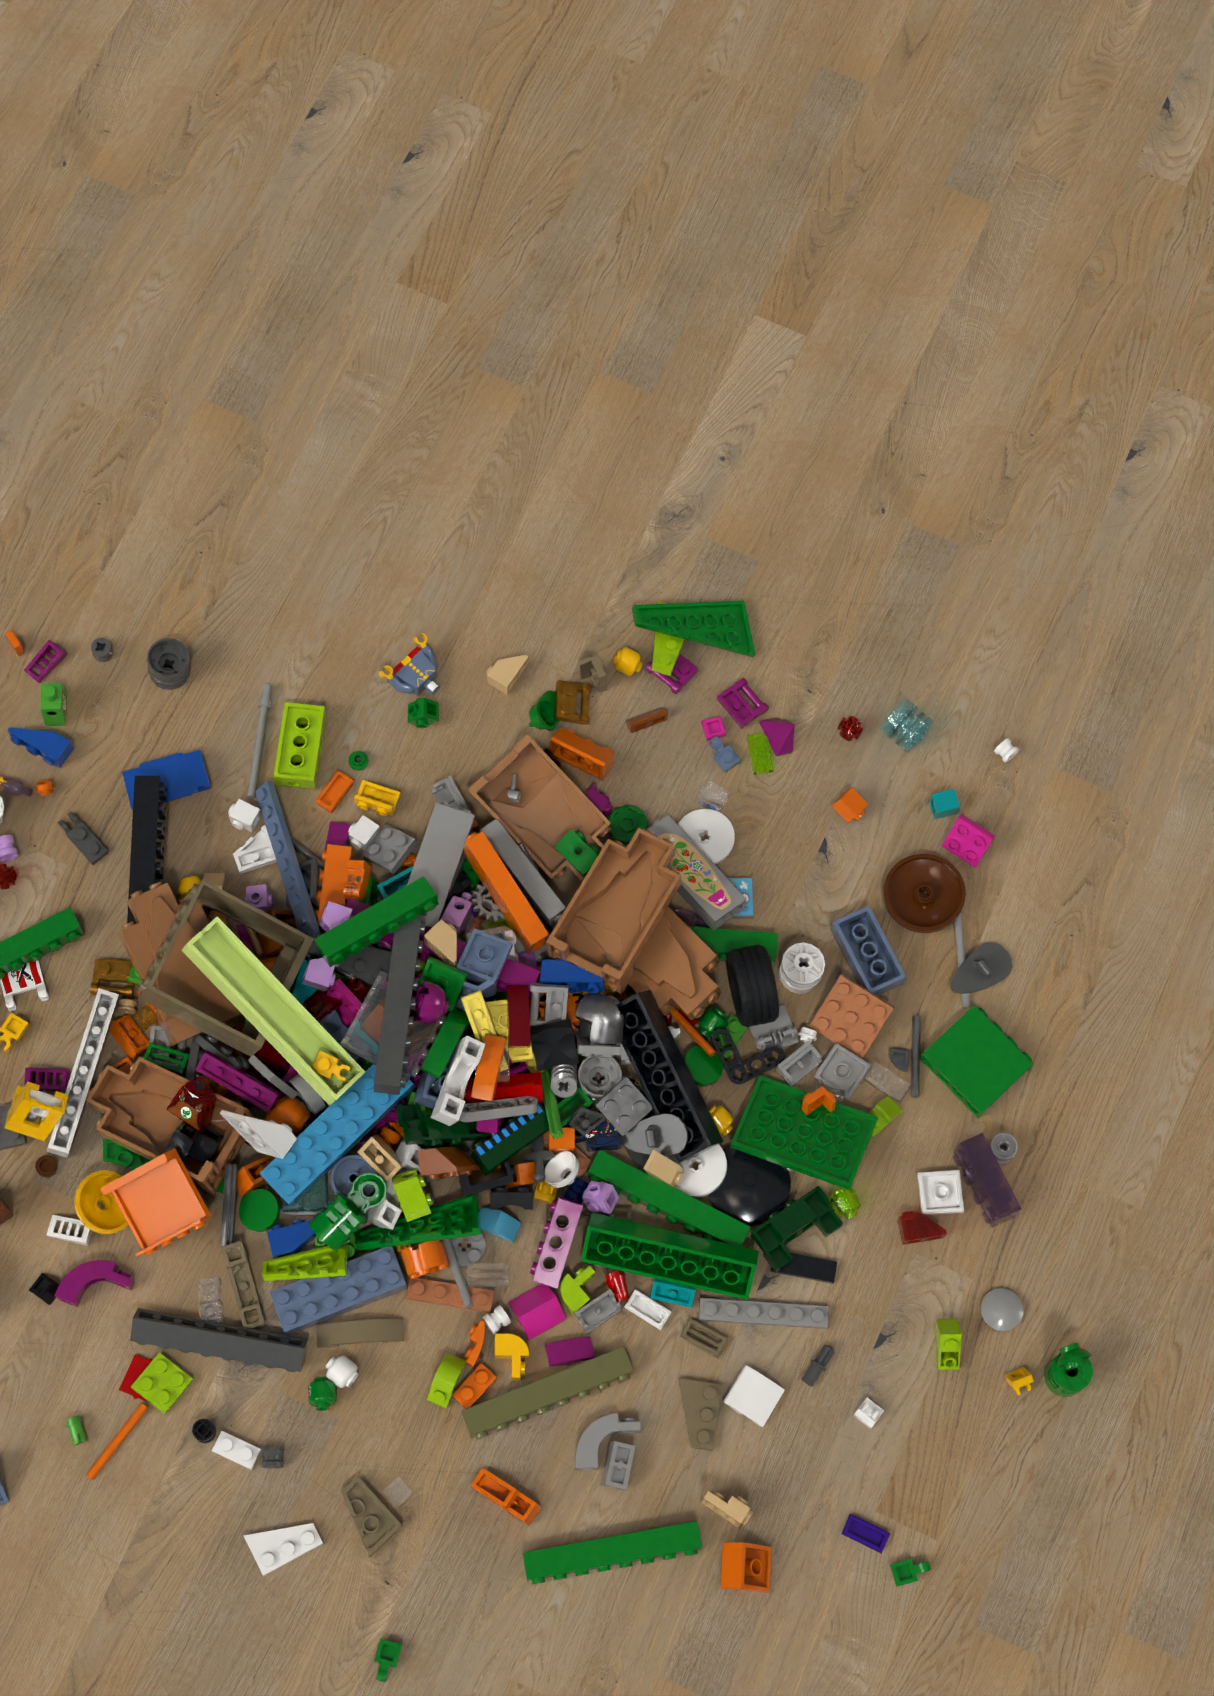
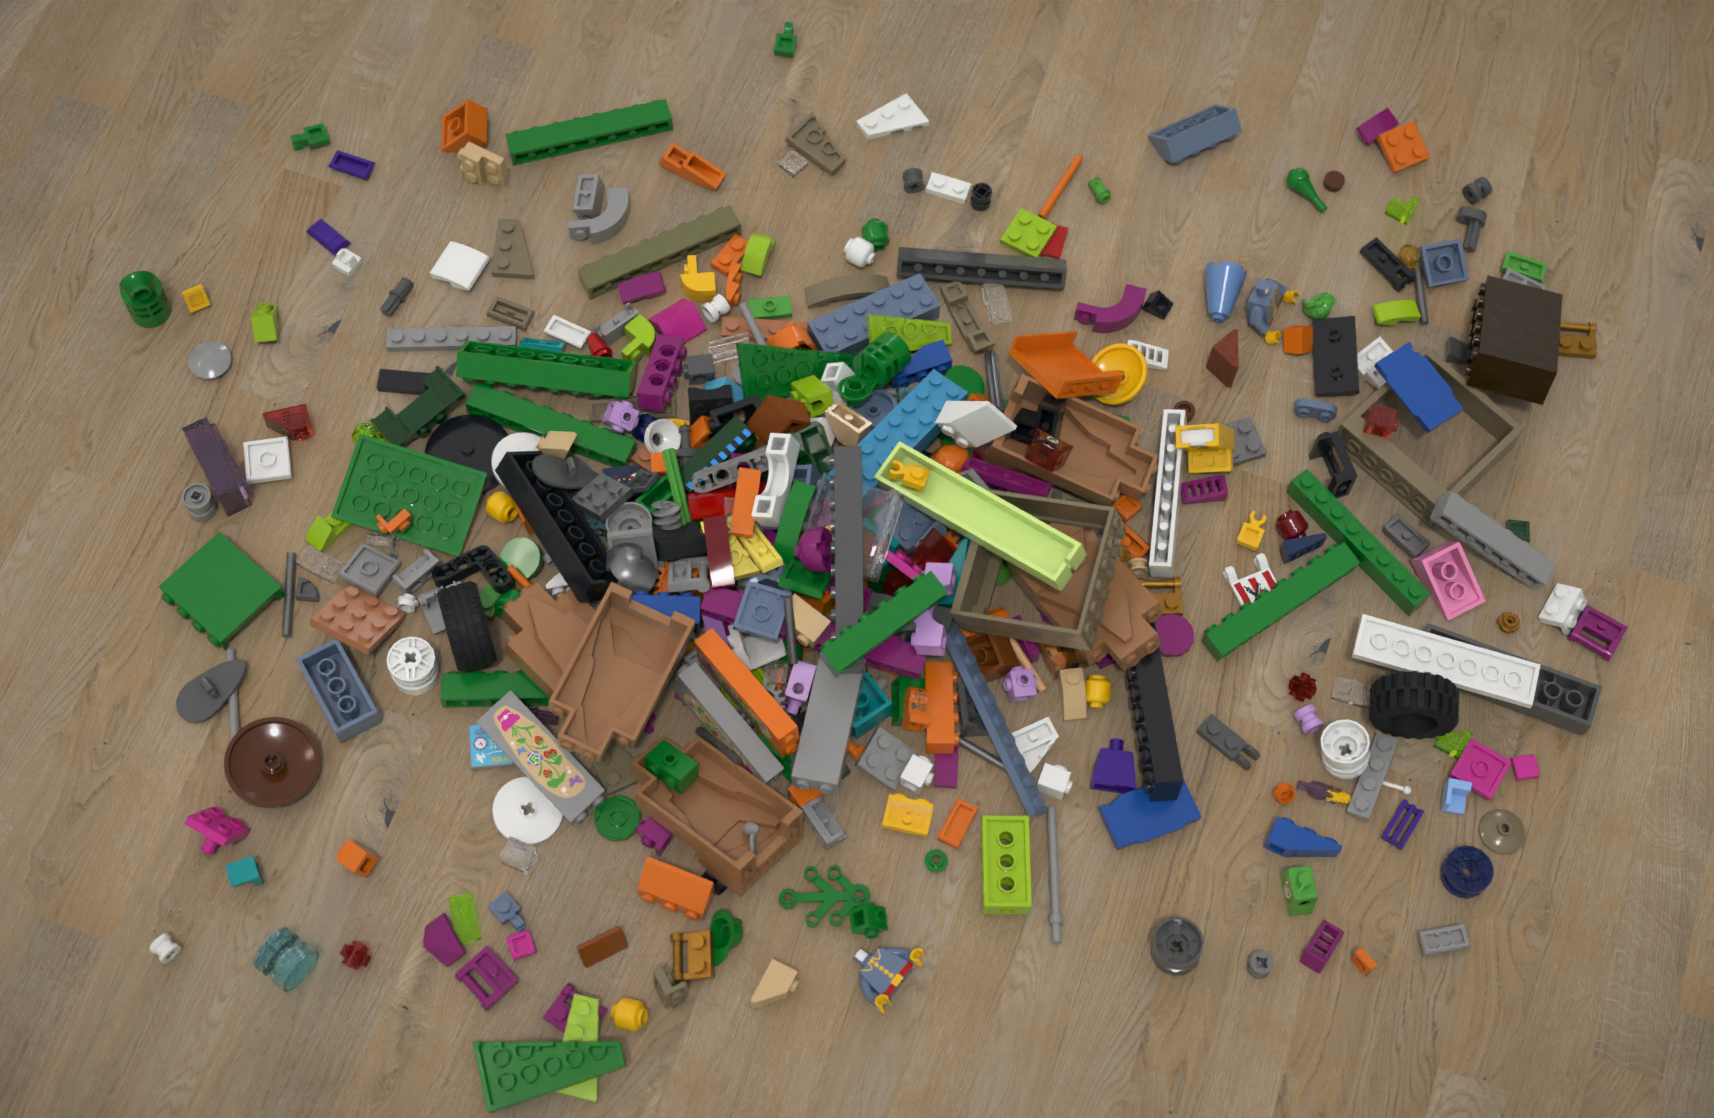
camera: 175 degrees right, 5 degrees down
(106, 940) = (1174, 635): none -> magenta tile
(190, 820) = (1114, 769): none -> dark purple torso
(441, 1319) = (771, 307): none -> bright green plate
(453, 740) = (828, 896): none -> green plant
(460, 952) = (790, 630): none -> flat silver bar
(519, 1251) = (699, 369): none -> dark grey brick
(888, 1447) = (328, 237): none -> dark purple tile

